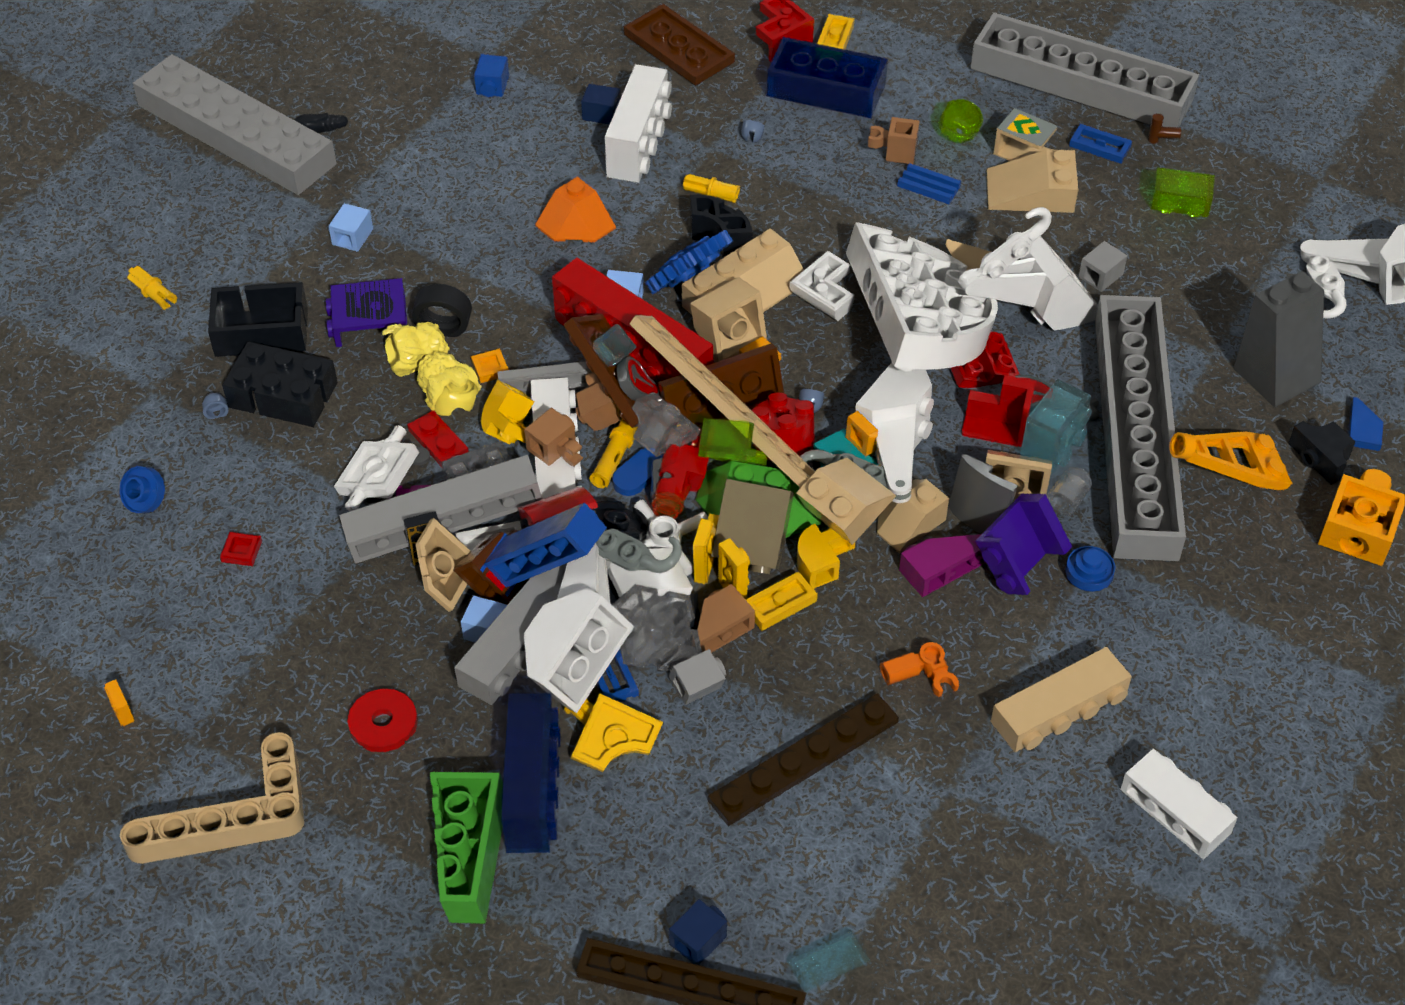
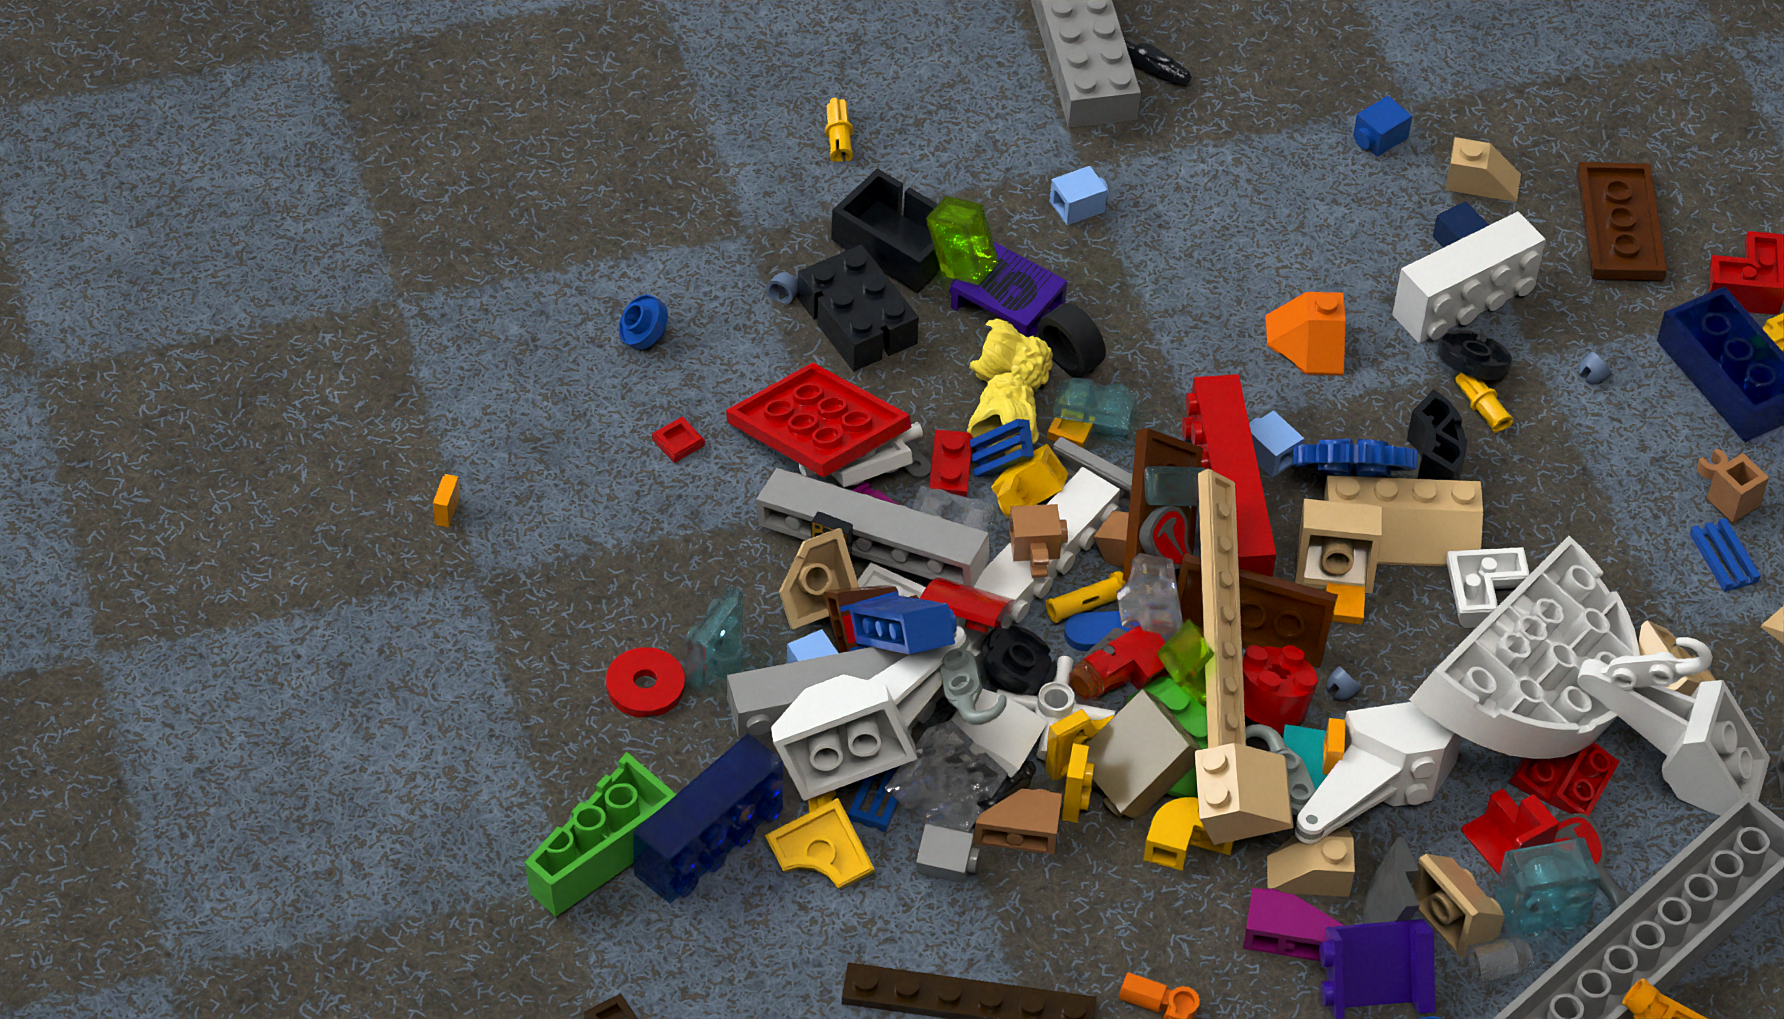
camera: 40 degrees right, 0 degrees up
(228, 816) = (477, 692): tan beam -> none
(319, 291) = (962, 240): none -> clear neon green brick
(330, 468) = (818, 419): none -> red plate
(411, 654) = (716, 644): none -> clear light blue plate
(454, 419) = (983, 453): none -> blue tile
(502, 337) = (1105, 407): none -> clear light blue plate
(570, 65) = (1481, 171): none -> tan slope
(684, 166) = (1474, 357): none -> black tile
(782, 600) = (1099, 847): yellow plate -> none

